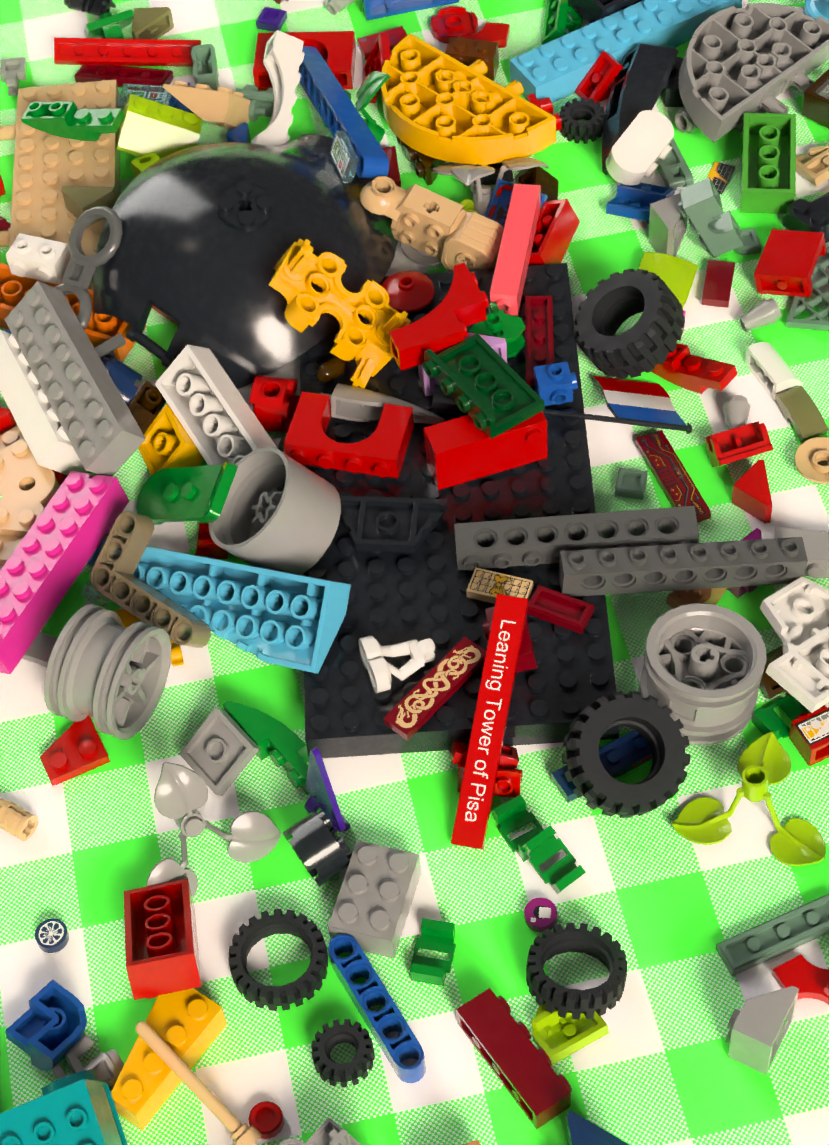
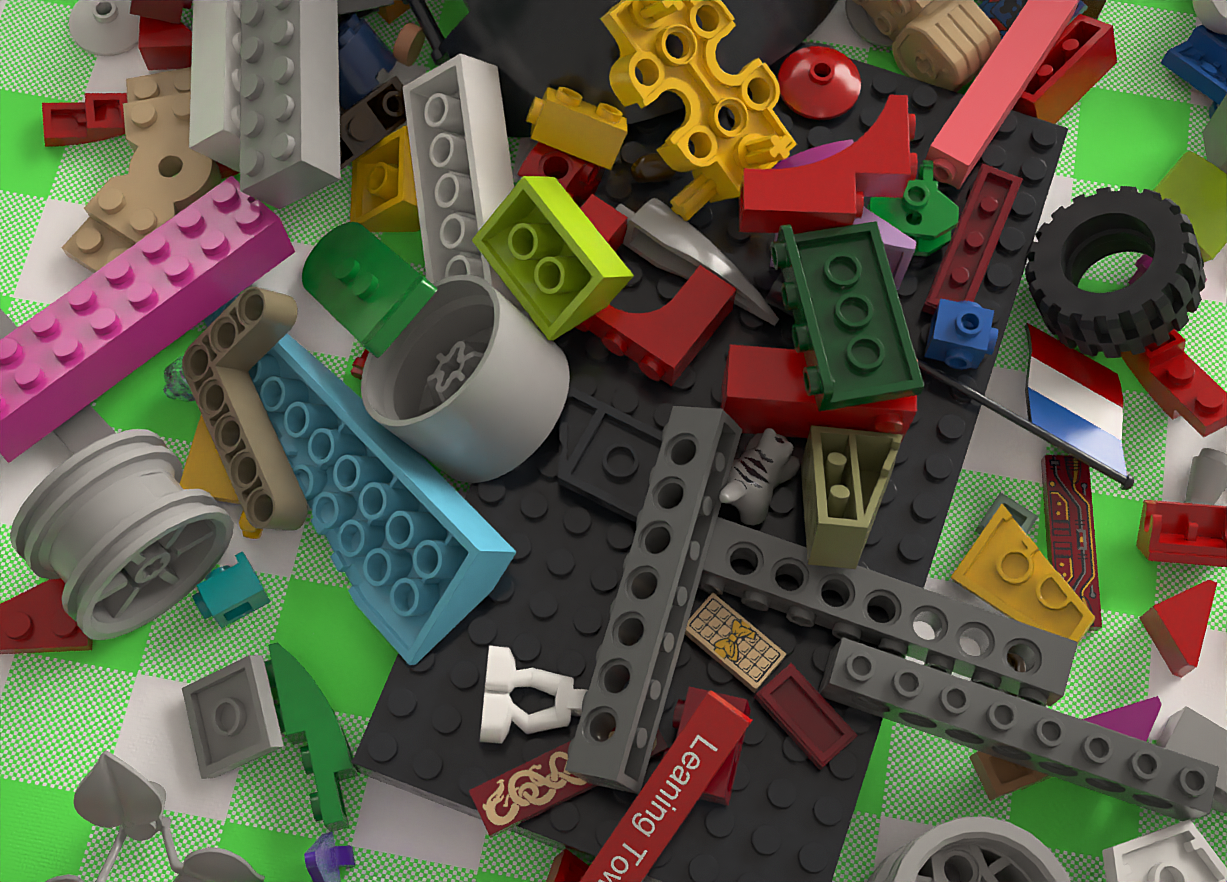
camera: 15 degrees right, 15 degrees up
(144, 363) = (408, 44): none -> nougat tile
(184, 692) = (230, 592): none -> teal brick
(270, 362) = (578, 126): none -> yellow brick
(295, 426) = (551, 256): none -> lime slope
(443, 574) = (689, 469): none -> dark grey brick
(470, 499) = (756, 473): none -> light grey animal
(524, 481) = (842, 490): none -> olive wedge
(641, 494) = (1020, 582): none -> yellow wing

